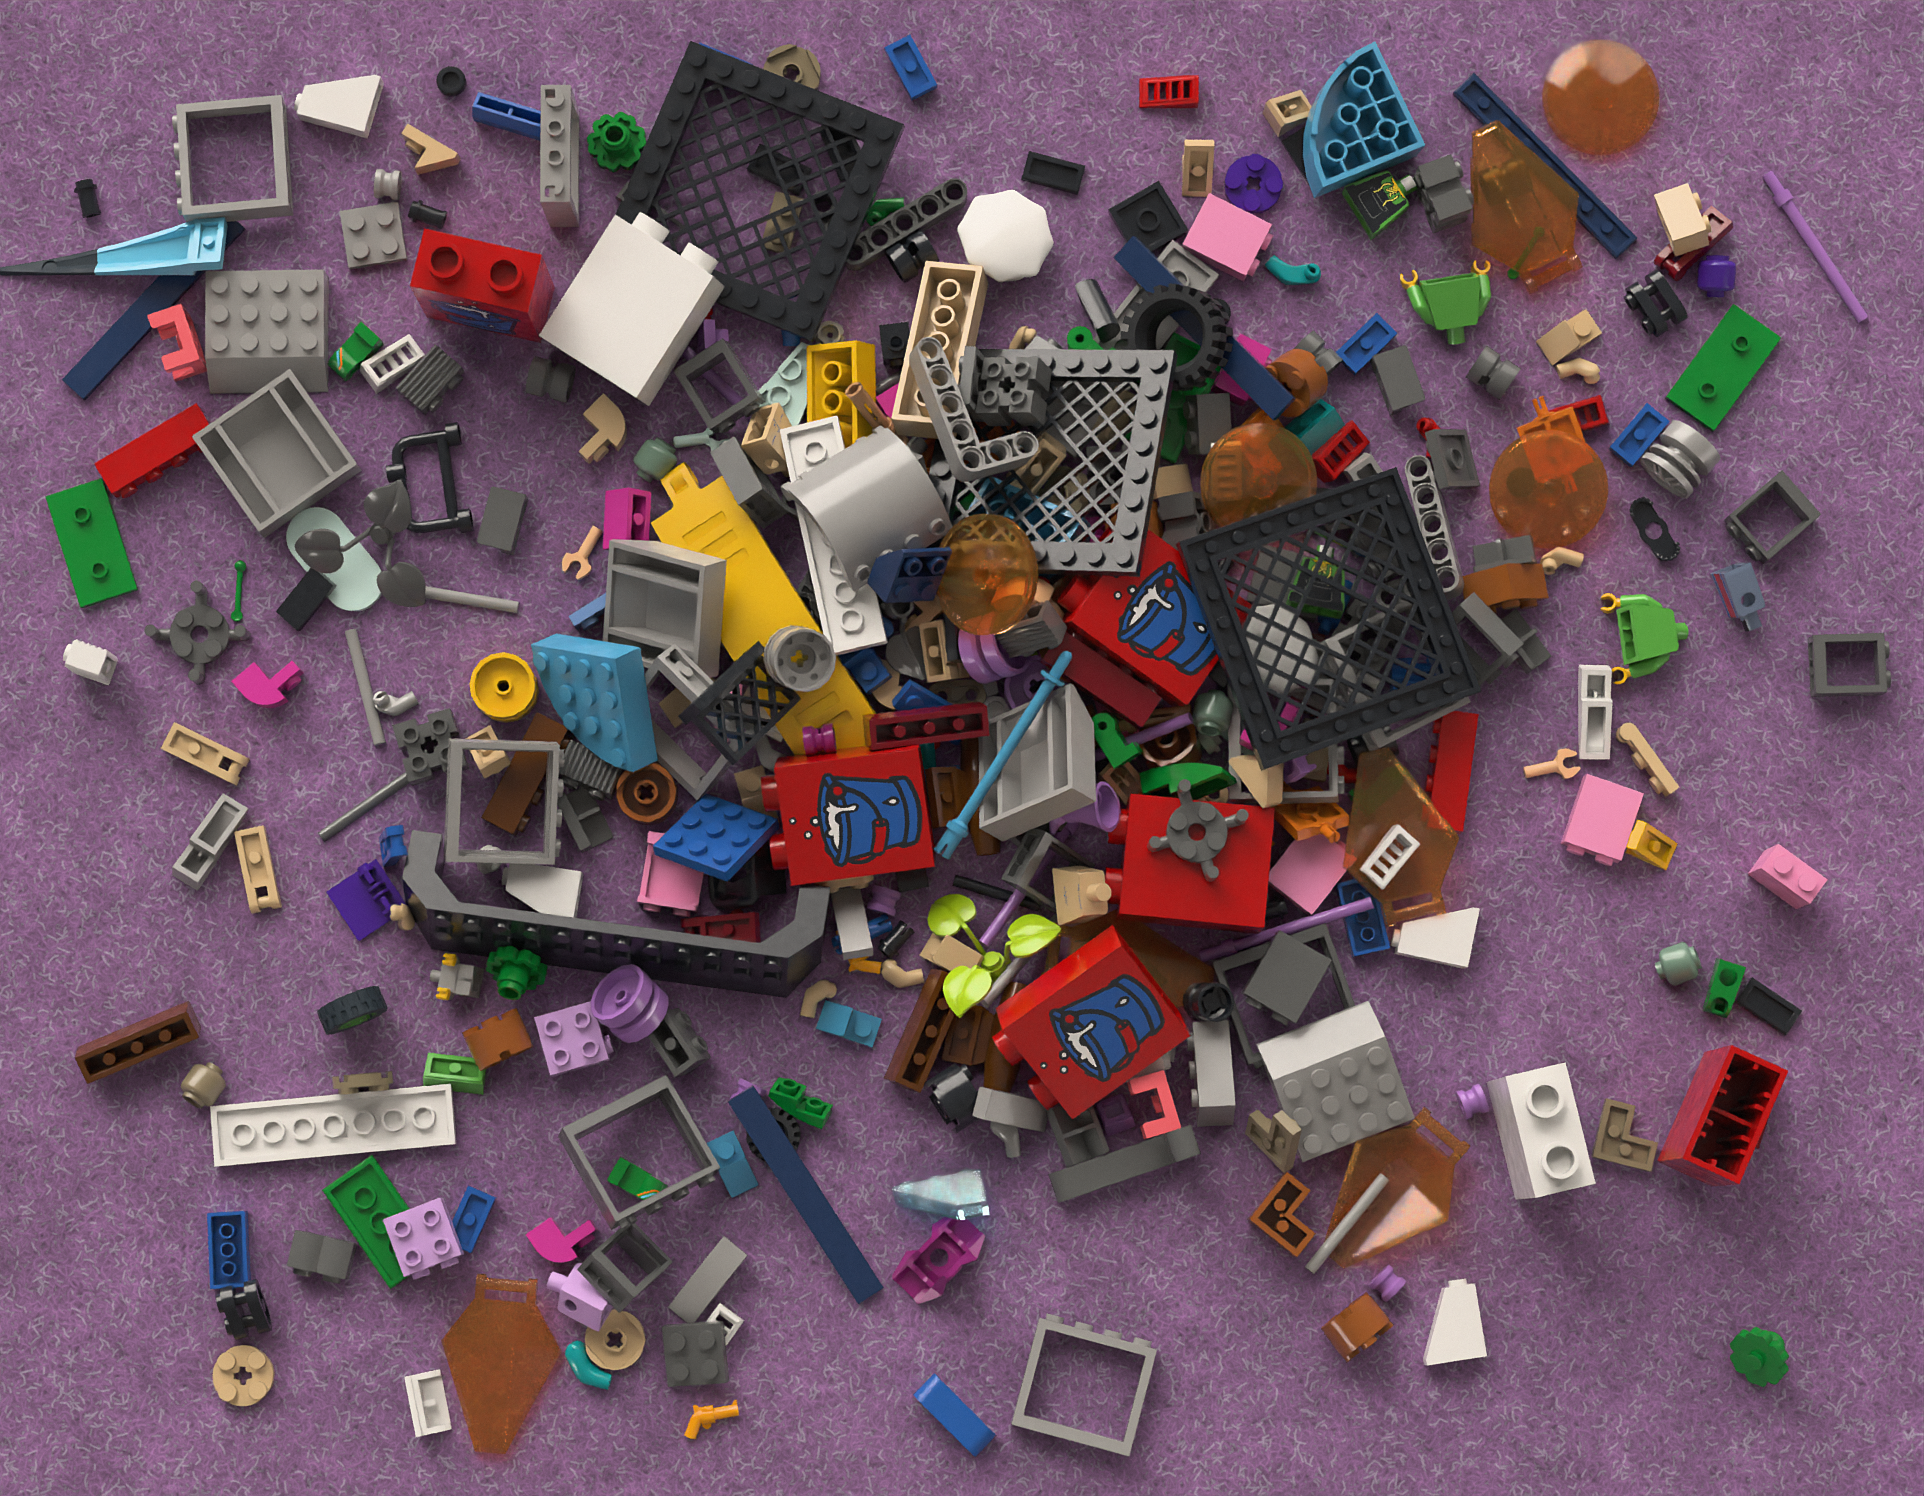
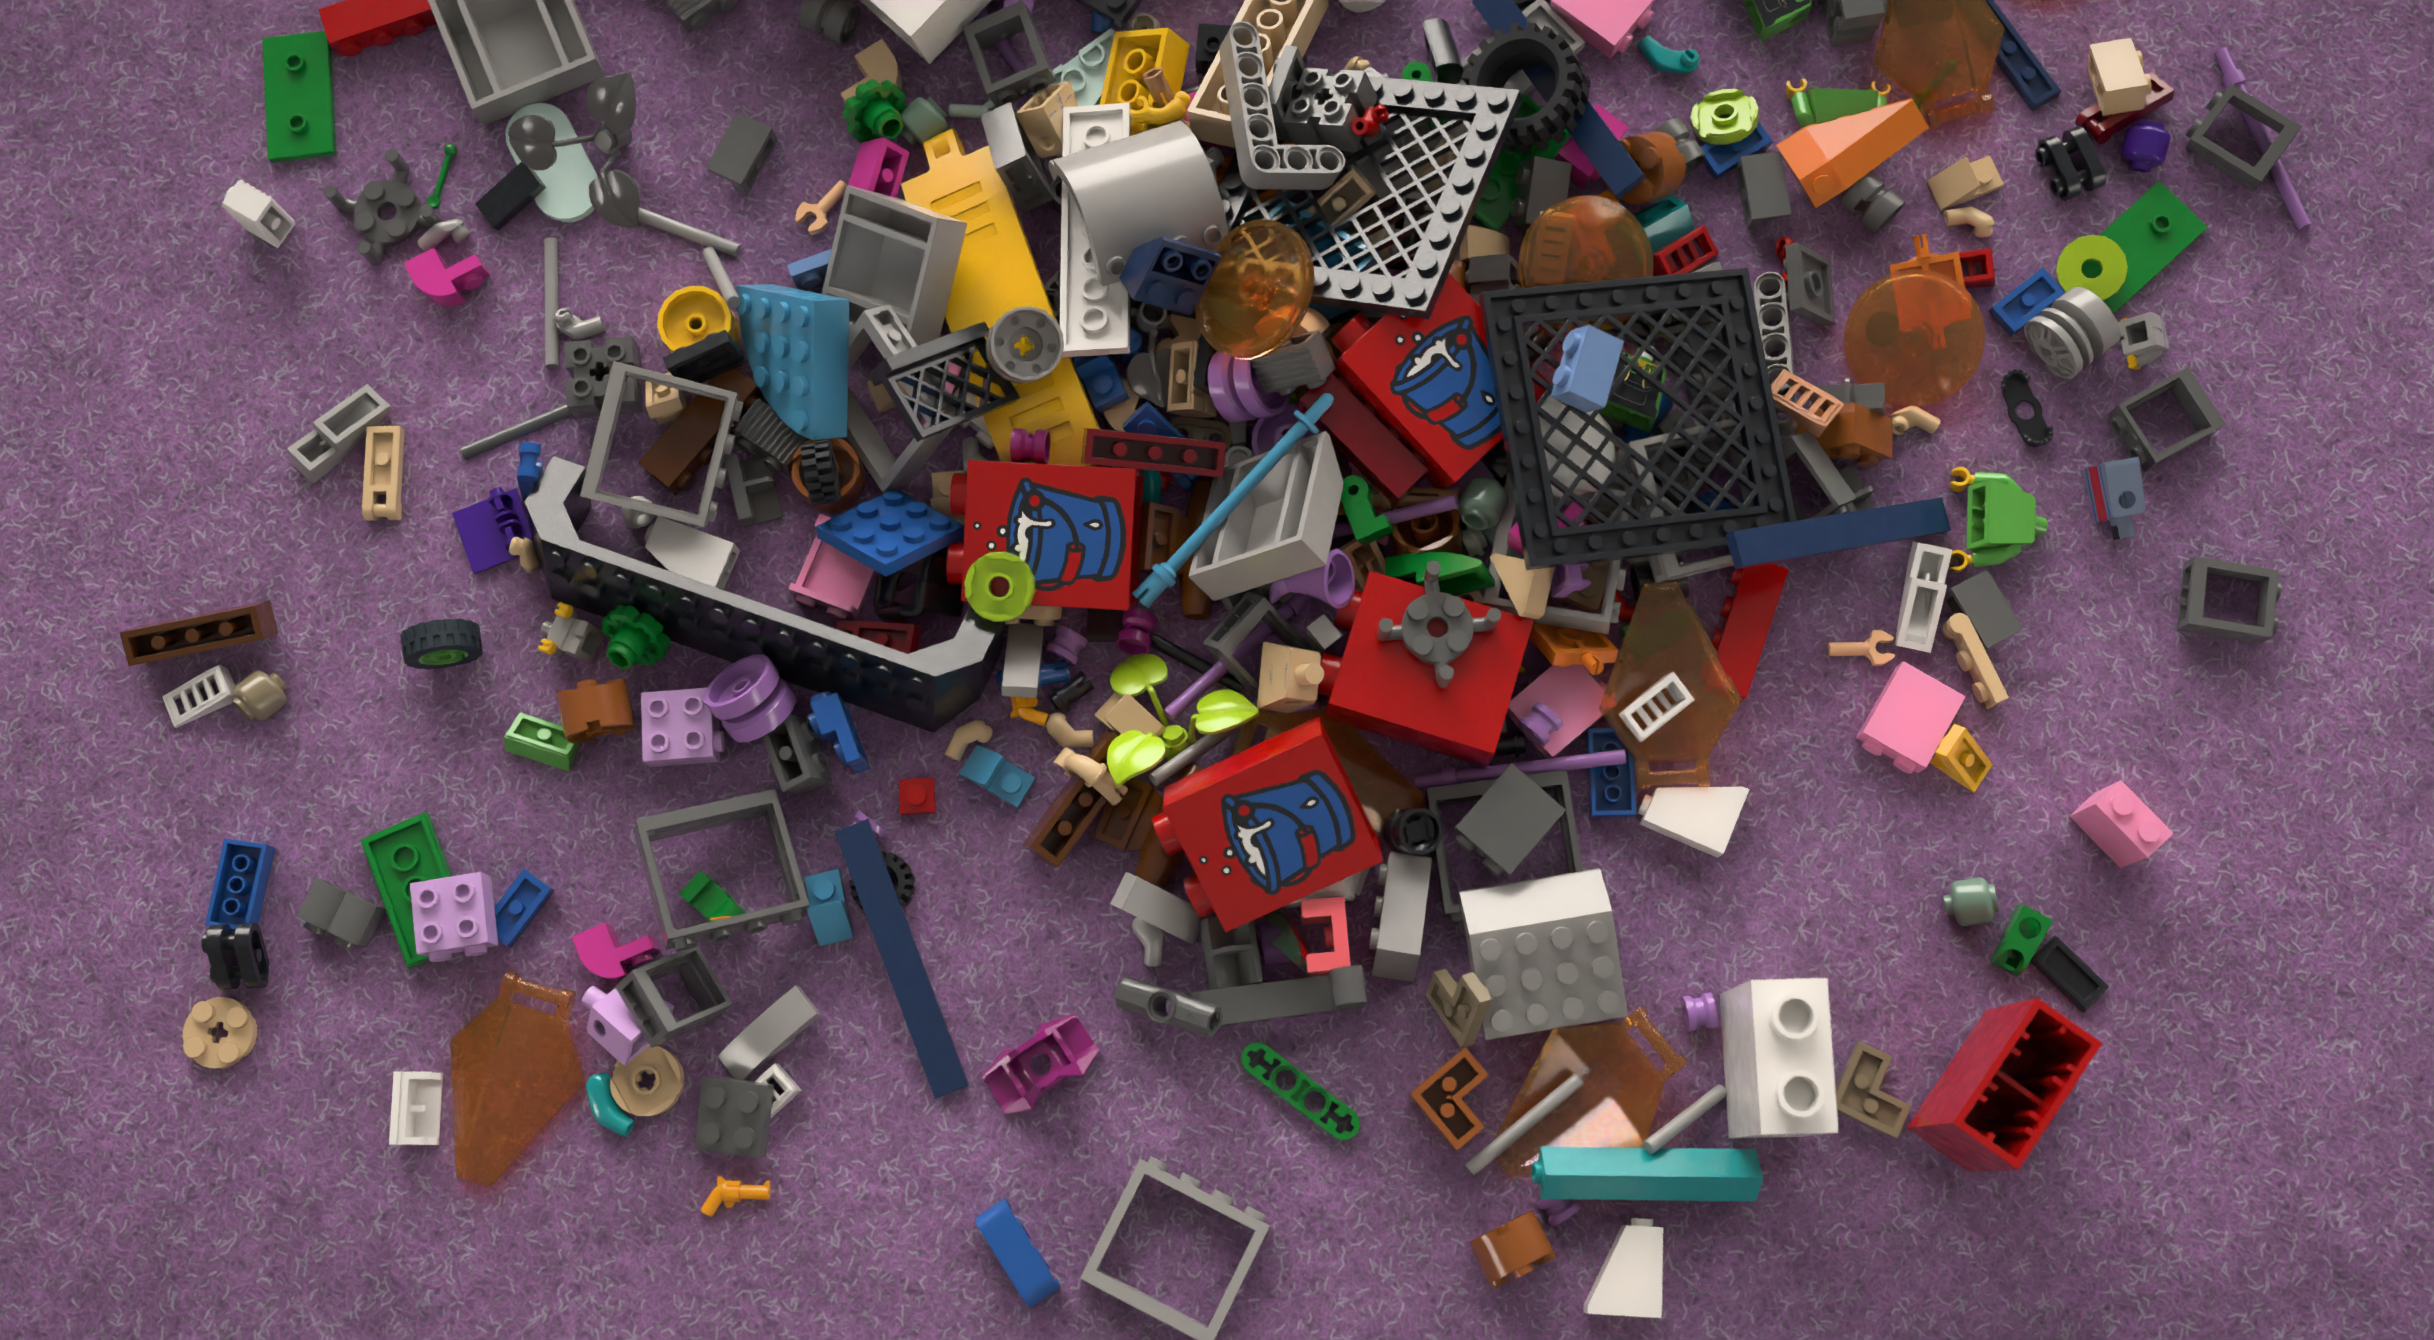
camera: 20 degrees right, 5 degrees down
(170, 1082) = (216, 674): none -> white slope
(204, 753) = (358, 337): tan plate -> none
(253, 642) = (442, 230): none -> light grey arm
(333, 1125) = (392, 770): white plate -> none
(353, 1081) = (421, 724): dark tan plate -> none
(397, 471) = (693, 143): black bar -> none
(513, 638) = (721, 277): none -> light grey bar
(513, 723) = (705, 358): none -> black plate
(615, 463) = (875, 111): none -> green plant
(648, 800) = (821, 472): none -> black tyre
(704, 1010) = (835, 724): none -> blue plate
(785, 1055) = (917, 796): none -> red plate
(792, 1099) = (914, 849): green slope -> none
(817, 851) = (979, 590): none -> lime tile
(877, 418) = (1170, 113): none -> yellow piece
(934, 1009) = (1092, 772): none -> tan piece
(941, 878) = (1136, 633): none -> magenta wheel
(951, 1196) = (1069, 995): clear light blue slope -> none
(954, 1096) = (1096, 880): black brick -> none
(1020, 1187) = (1185, 1011): none -> dark grey piece
(1050, 399) = (1369, 123): none -> red arm
(1101, 853) = (1321, 634): none -> light grey piece
(1126, 1113) = (1290, 941): none -> slope
(1160, 1229) = (1303, 1087): none -> green beam
(1278, 592) = (1586, 368): none -> medium blue brick
(1296, 890) = (1540, 723): none -> medium lavender wheel
(1356, 333) = (1728, 130): none -> lime tile
(1454, 1243) = (1637, 1175): none -> teal brick
(1458, 337) = (1842, 151): none -> orange wedge
(1469, 585) = (1819, 398): none -> nougat slope
(1476, 1192) = (1684, 1119): none -> light grey bar
(1513, 679) = (1837, 532): none -> dark blue tile
(1647, 714) = (1985, 607): none -> dark grey panel
(1688, 379) = (2097, 249): none -> lime tile
(1741, 450) = (2143, 337): none -> light grey piece
(1823, 267) = (2224, 160): none -> dark grey window

